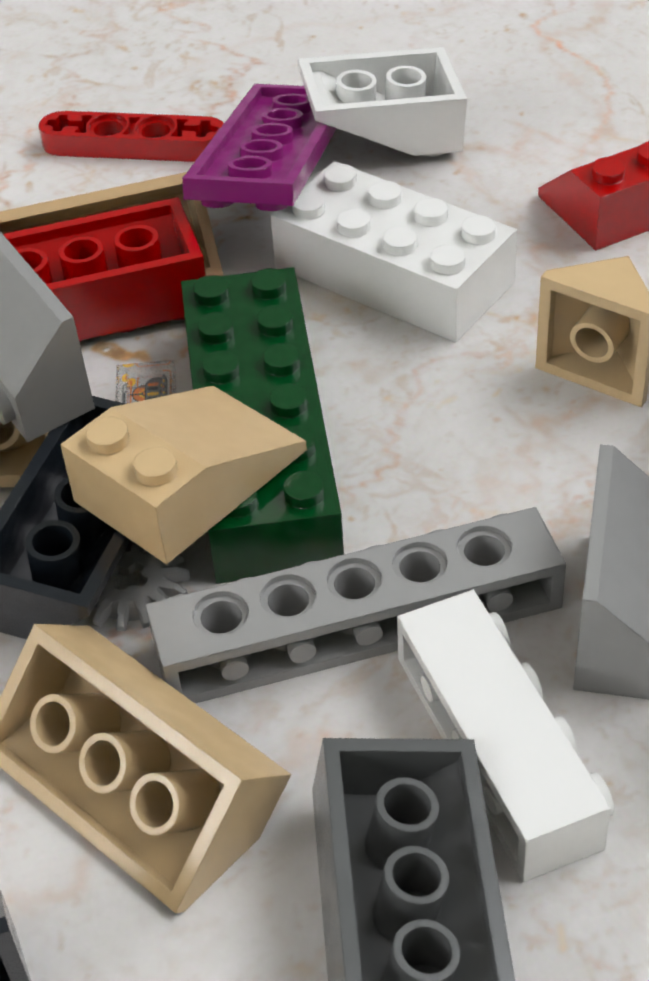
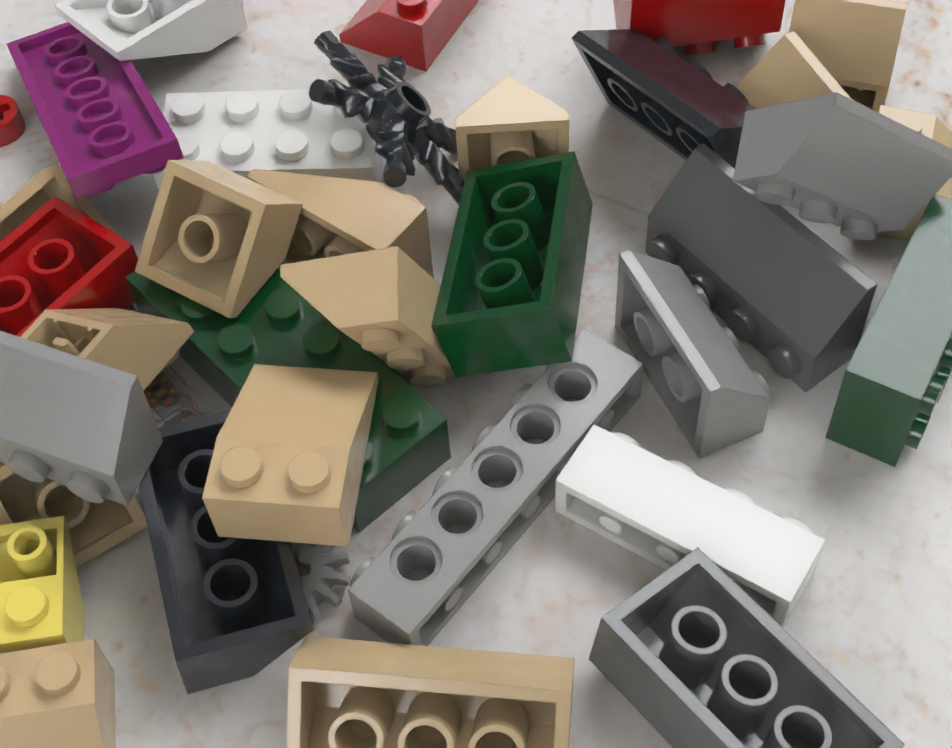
camera: 35 degrees left, 10 degrees up
(118, 324) = (114, 338): none -> tan slope
(265, 271) = (216, 235): none -> tan slope
(357, 399) = (381, 304): none -> tan slope
(394, 338) = (350, 217): none -> tan slope
(500, 249) = (394, 114): none -> black piece
(512, 423) = (515, 267): none -> dark green brick

